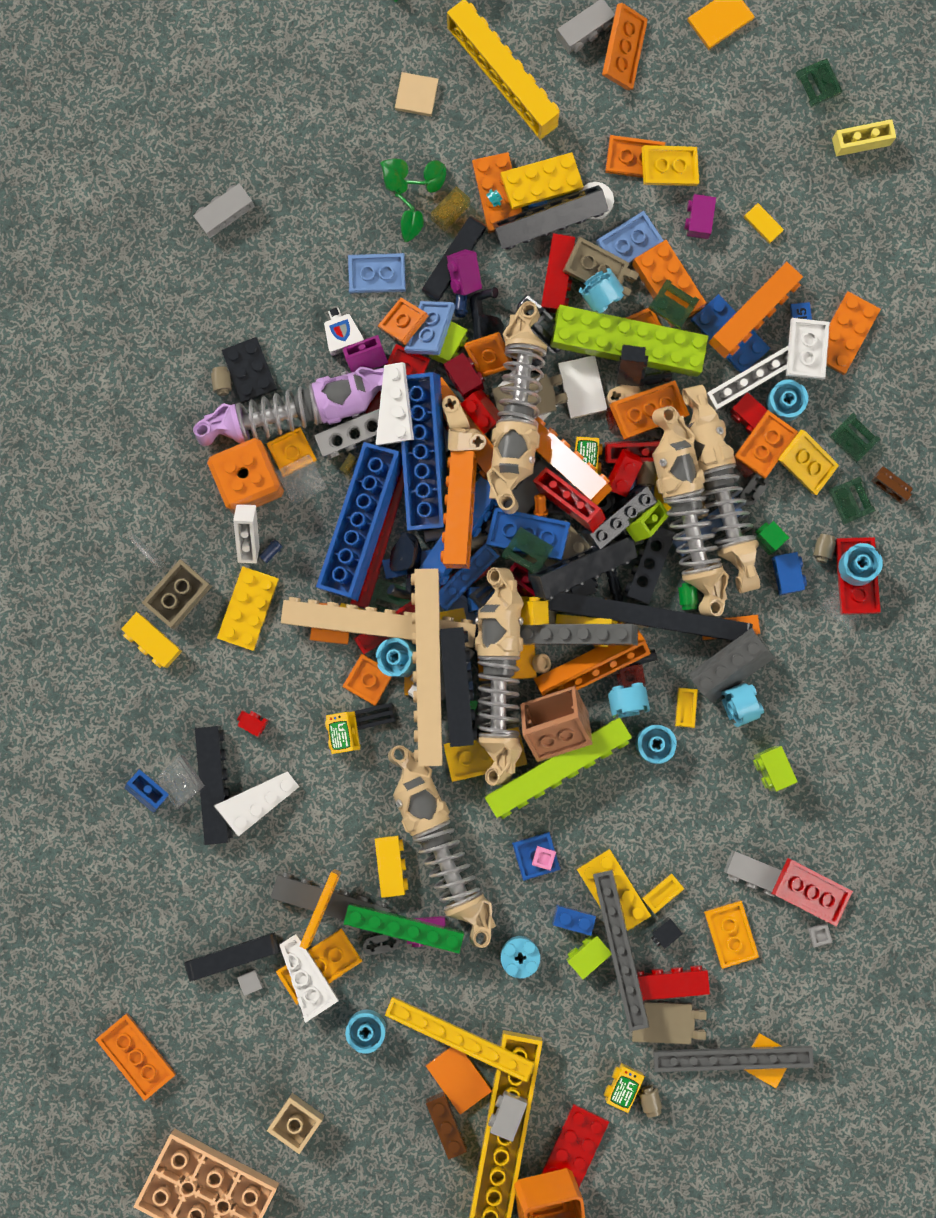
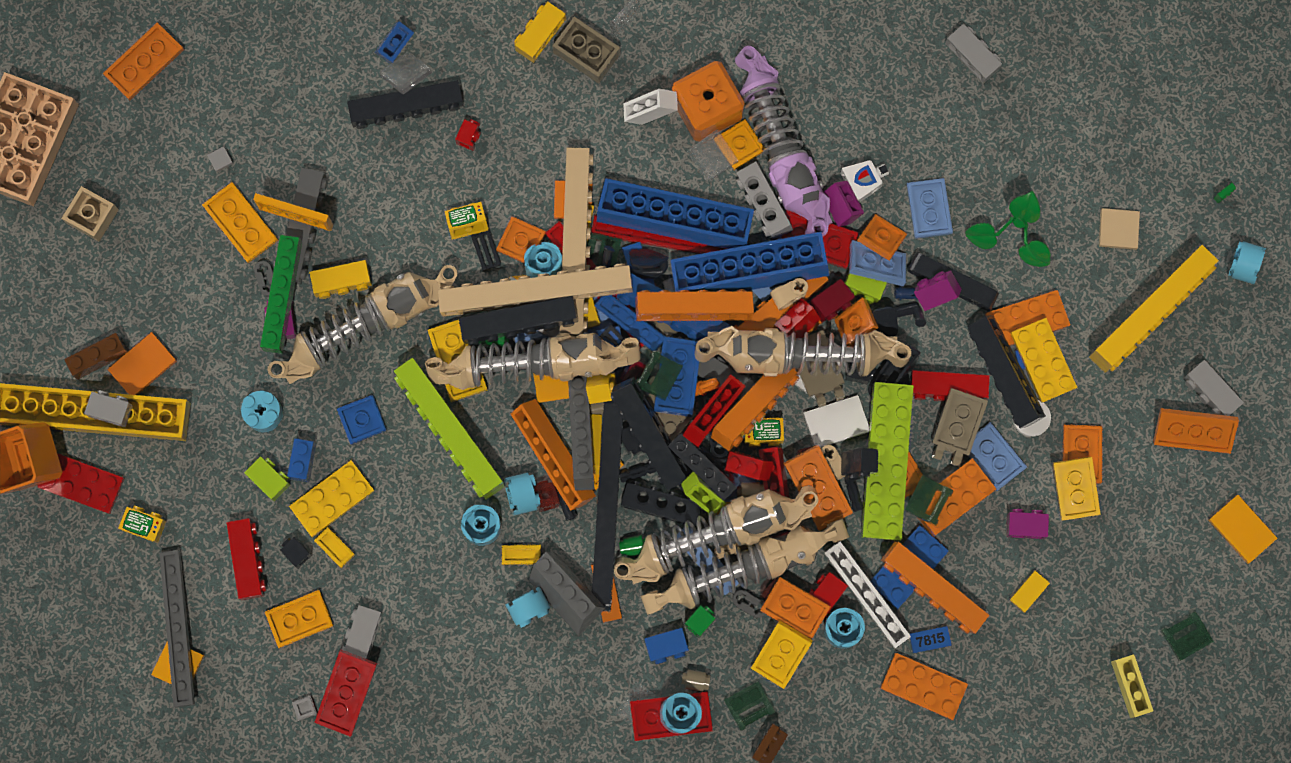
camera: 85 degrees right, 5 degrees down
(221, 380) = (802, 69): dark tan brick -> none
(232, 957) = (243, 139): black beam -> none
(248, 608) = (580, 119): yellow plate -> none
(249, 370) = (816, 95): black plate -> none
(250, 806) = (390, 143): white wing -> none
(270, 550) = (638, 134): dark blue pin -> none
(310, 985) = (221, 214): white wing -> none
(348, 464) = (731, 198): clear yellow tile -> none
(357, 1039) = (172, 265): medium azure brick -> none
(394, 411) = (787, 233): white wing -> none
(450, 209) = (1002, 272): clear yellow brick -> none
(460, 1039) = (178, 359): yellow tile -> none
(462, 439) = (765, 302): tan piece -> none
(494, 197) = (1018, 313): teal plate -> none
(541, 663) = (552, 406): tan tile -> none
(543, 858) = (359, 425): bright pink tile -> none
(556, 724) = (490, 420): nougat container -> none
(602, 290) = (932, 426): medium azure brick -> none
(621, 950) = (274, 506): dark grey plate -> none
(650, 1101) = (130, 551): dark tan brick -> none
(670, 1023) = (208, 561): dark tan tile -> none
(774, 768) = (466, 644): lime brick -> none
(807, 348) = (898, 641): white tile -> none
(850, 441) = (809, 700): clear green plate -> none

